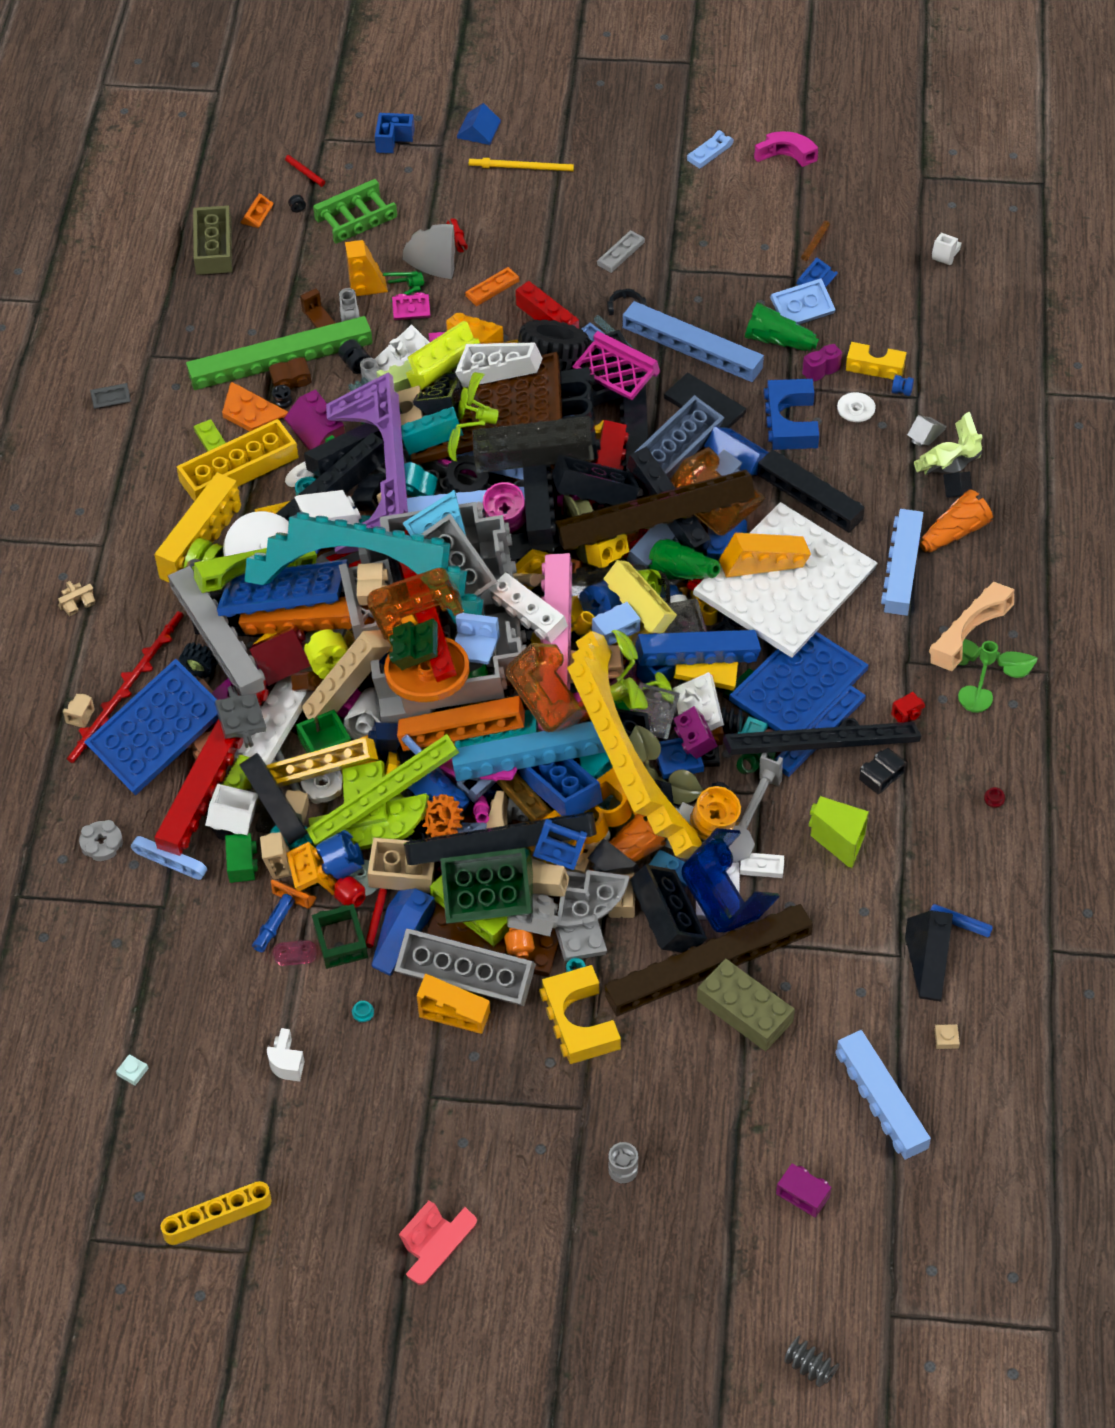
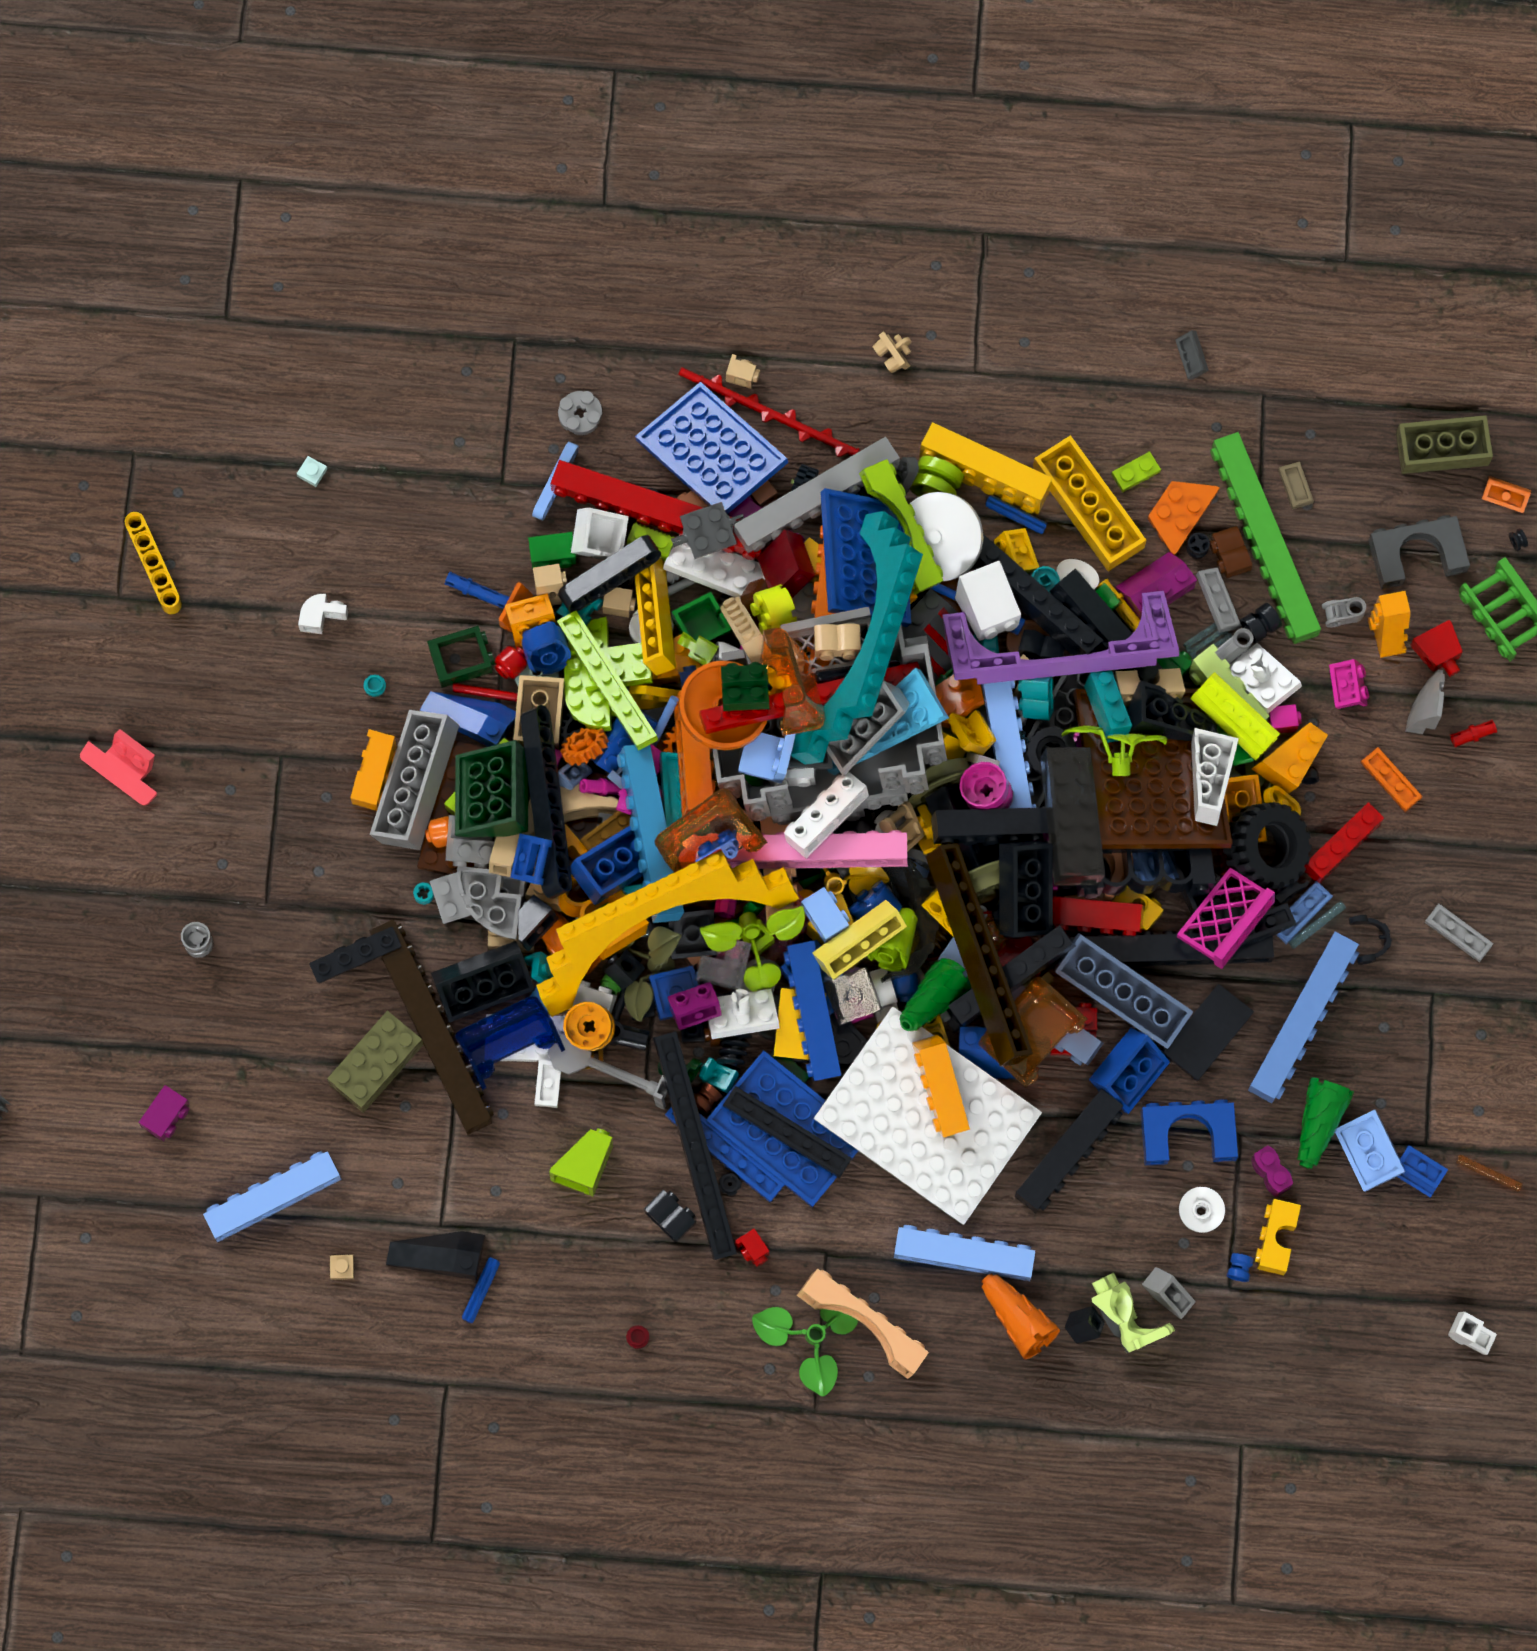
camera: 85 degrees right, 20 degrees up
(234, 336) = (1296, 485): none -> dark tan tile
(246, 508) = (1016, 514): none -> blue axle
(294, 953) = (444, 614): clear pink plate -> none
(295, 278) = (1441, 533): none -> dark grey arch
(313, 310) = (1332, 576): reddish brown bracket -> none
(333, 383) = (1218, 599): none -> light grey tile
(353, 728) = (701, 649): none -> lime plate
(385, 250) = (1439, 648): none -> red torso
(413, 279) = (1394, 685): green plant -> none
(560, 674) = (727, 842): none -> blue hinge
(577, 1041) = (388, 874): yellow arch -> none
(640, 1018) = (355, 955): none -> black bracket
(655, 859) = (540, 966): none -> teal bracket
(803, 678) = (787, 1132): none -> black tile

